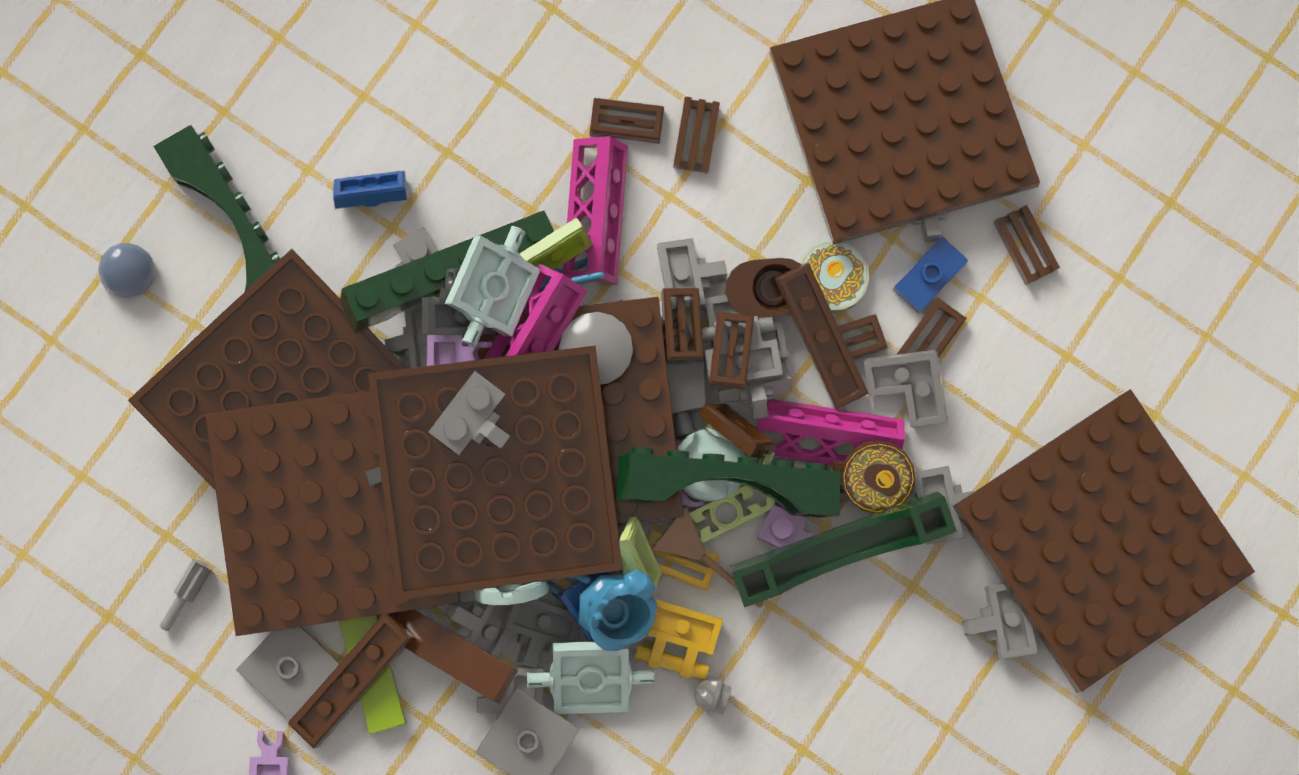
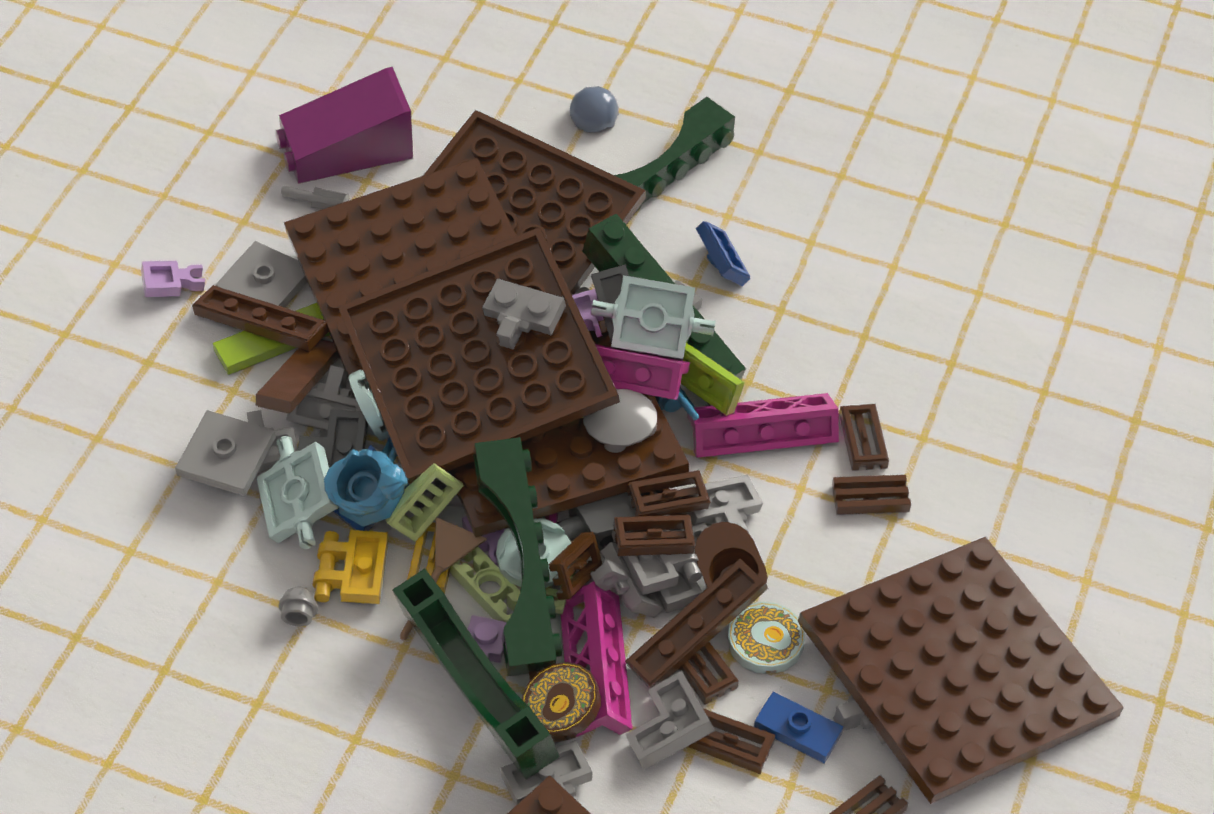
camera: 80 degrees right, 30 degrees down
(102, 545) = (348, 129): none -> magenta slope

